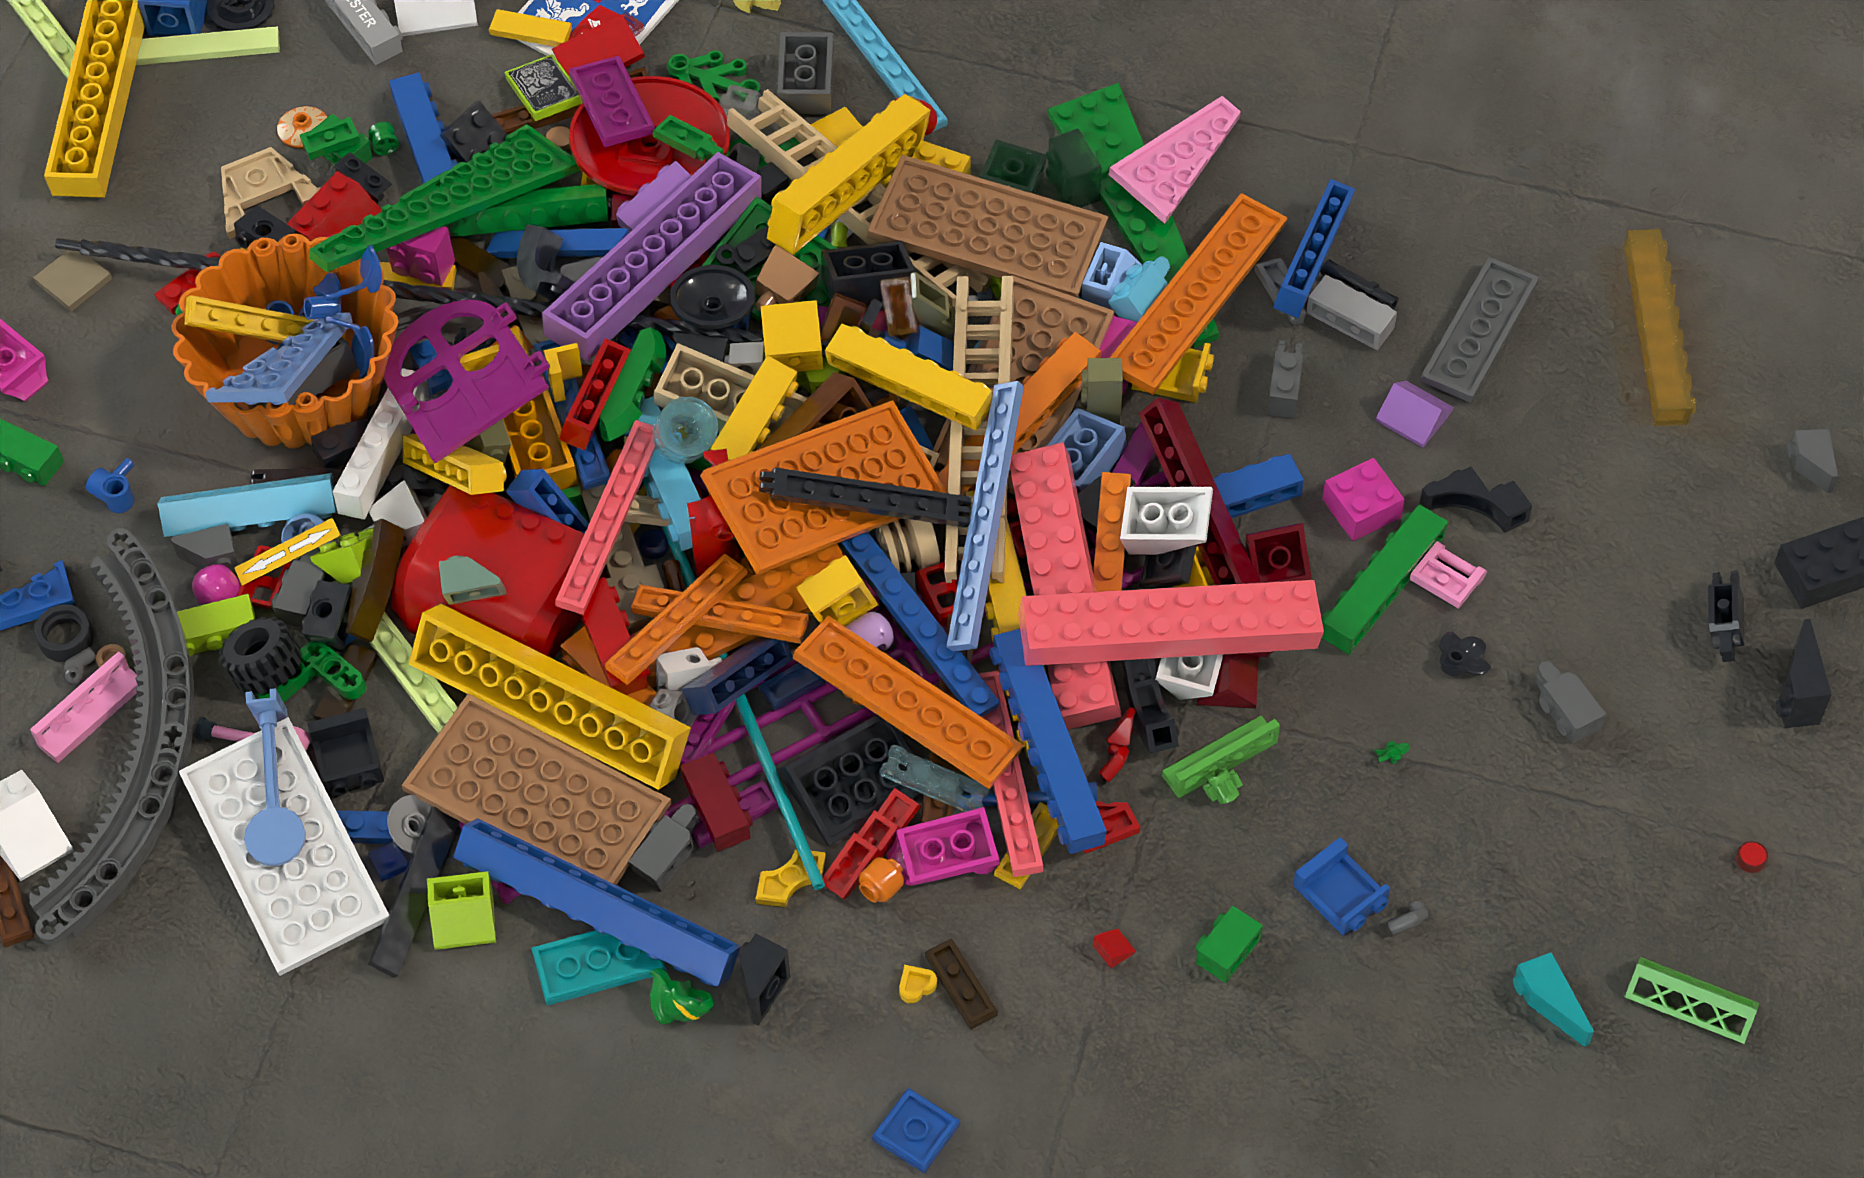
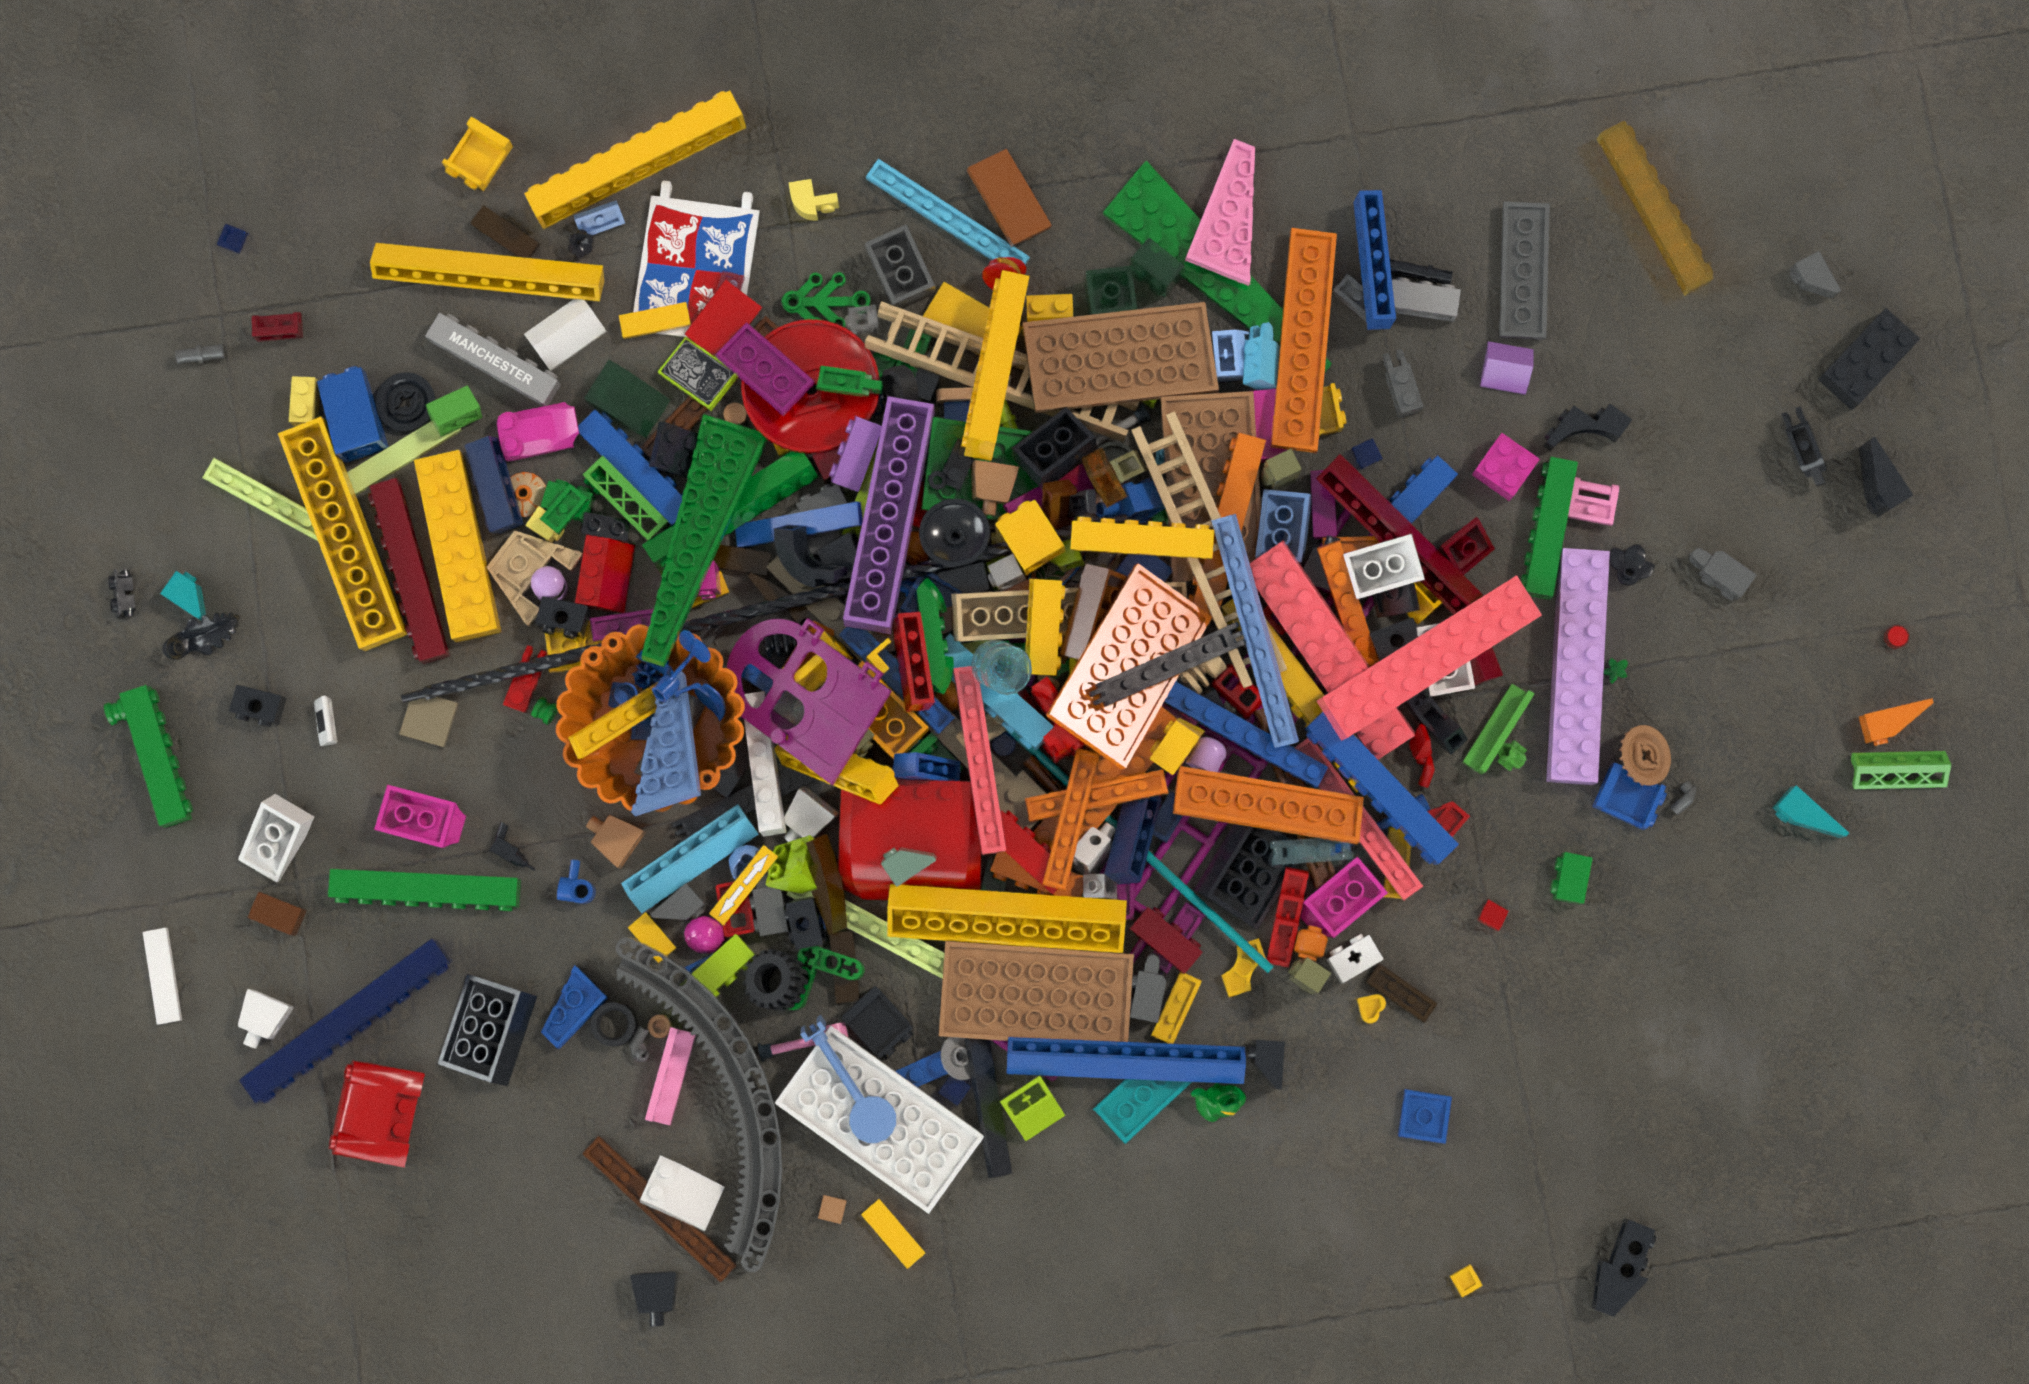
camera: 25 degrees left, 25 degrees up
(68, 426) = (507, 850): none -> black piece
(142, 143) = (409, 571): none -> dark red brick
(163, 558) = (649, 933): none -> yellow tile
(174, 923) = (832, 1209): none -> medium nougat tile
(186, 459) = (615, 838): none -> medium nougat torso
(204, 139) = (457, 546): none -> yellow brick
(225, 980) = (893, 1233): none -> yellow tile
(273, 198) = (548, 583): none -> lavender helmet
(277, 100) = (493, 485): none -> dark blue brick
(280, 24) = (454, 411): none -> bright green panel
(300, 159) = (541, 528): none -> light yellow brick
(347, 74) = (537, 431): none -> dark pink slope
(405, 150) = (631, 491): none -> bright green fence
(456, 77) = (627, 399): none -> clear green slope
(693, 883) = (1176, 1008): none -> yellow tile
(857, 899) = (1308, 975): none -> olive brick
(912, 929) = (1367, 958): none -> white brick
(956, 61) = (1009, 198): none -> dark orange tile
(1213, 431) = (1366, 453): none -> clear blue tile
(1345, 729) = (1578, 667): none -> lavender brick
(1387, 831) = (1658, 756): none -> medium nougat gear
(1702, 939) = (1888, 722): none -> orange slope

